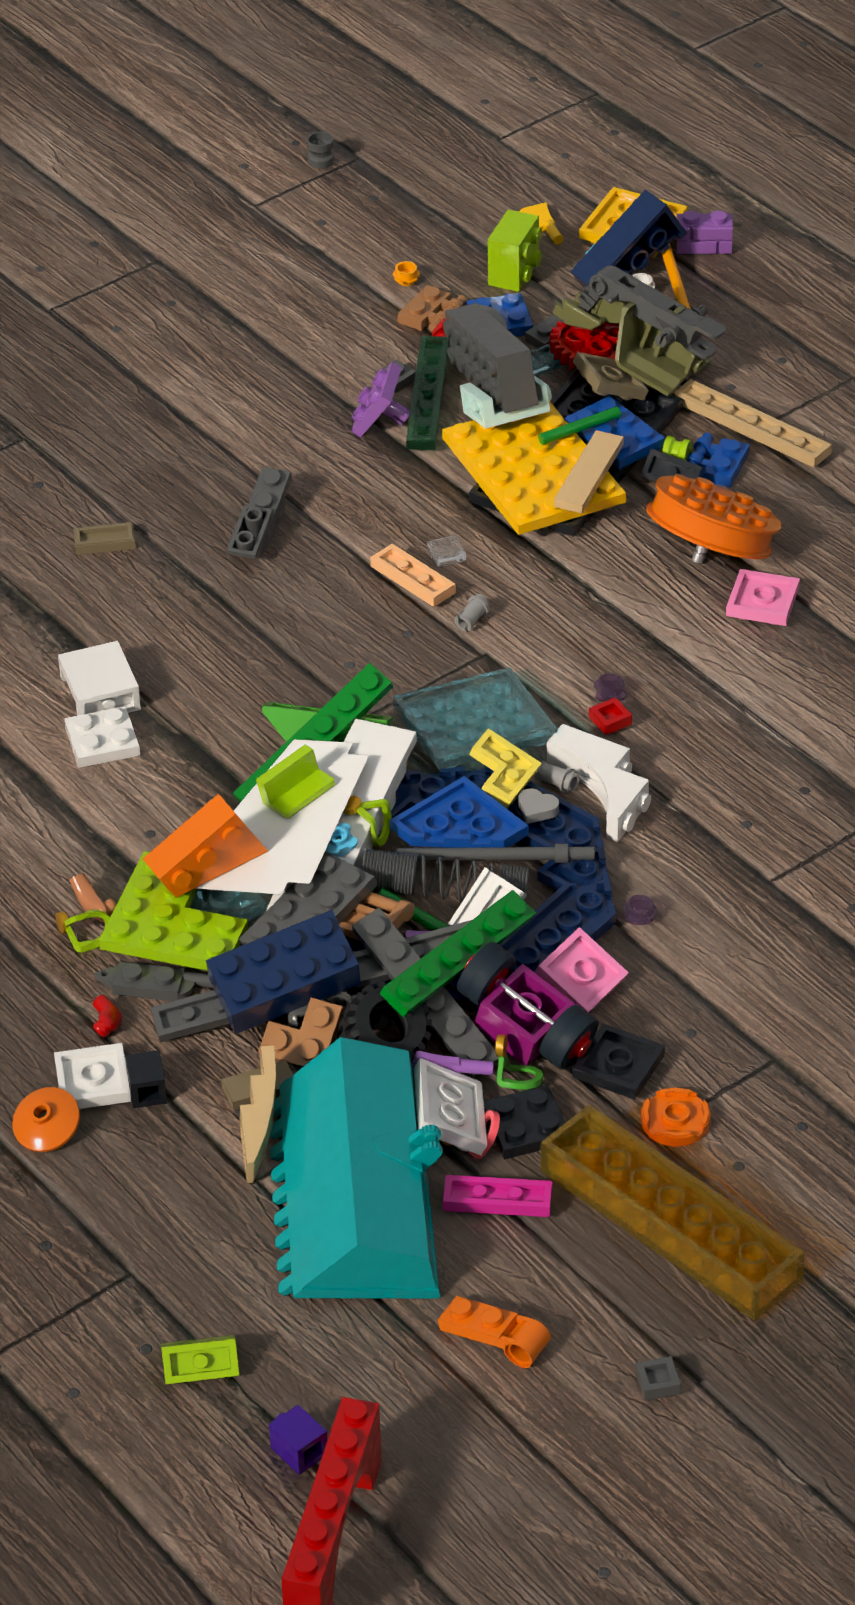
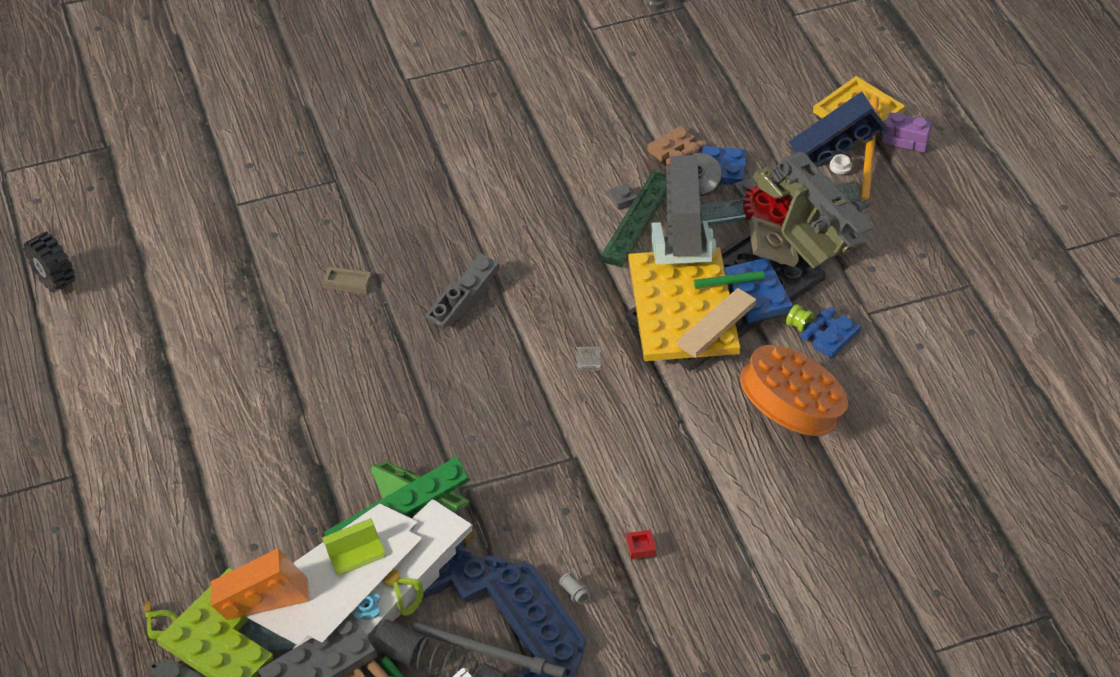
camera: 20 degrees right, 5 degrees up
(89, 898) = (177, 594): nougat arm -> none
(100, 678) = (277, 404): white panel -> none
(102, 736) = (260, 451): white plate -> none
(379, 400) = (594, 217): medium lavender plate -> none
(406, 273) = (670, 111): light orange plate -> none
(413, 575) = (551, 374): light nougat plate -> none
(458, 713) = (534, 518): clear light blue plate -> none
(459, 818) = (474, 610): blue plate -> none
(476, 607) = (580, 419): light grey pin -> none
(510, 765) = (535, 574): light yellow plate -> none
(514, 250) = (753, 113): lime brick -> none
(537, 806) = (541, 614): light grey tile -> none
(545, 221) = (790, 90): yellow piece -> none
(606, 772) = (613, 593): white arch -> none
(609, 687) = (656, 513): clear purple plate -> none
(662, 464) = (788, 334): black plate -> none
(753, 423) = (872, 308): tan plate -> none
(762, 597) = (809, 468): bright pink plate -> none

